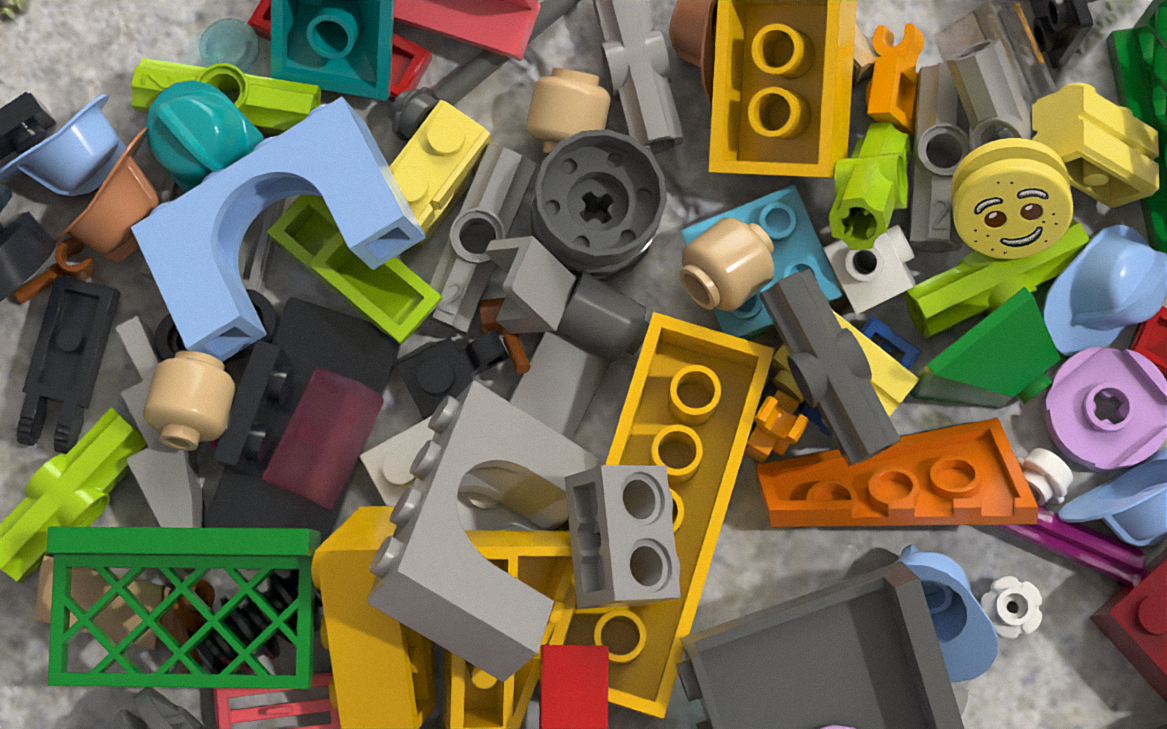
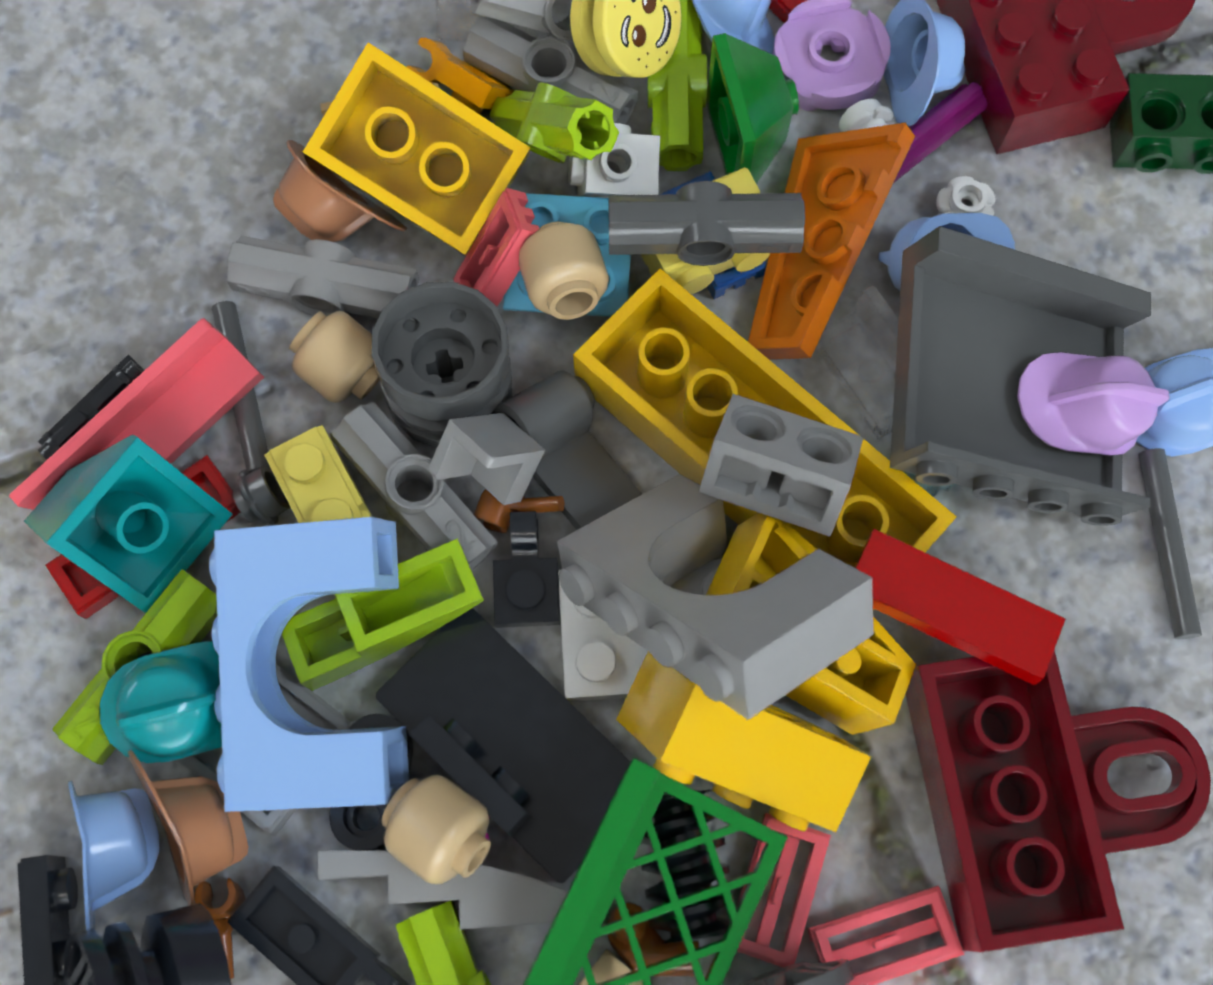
camera: 65 degrees left, 5 degrees down
(231, 43) = (85, 640): clear light blue plate -> none
(324, 438) = (531, 723): clear pink slope -> none
(720, 197) = (495, 252): none -> coral tile
(775, 427) = (729, 299): light orange plate -> none

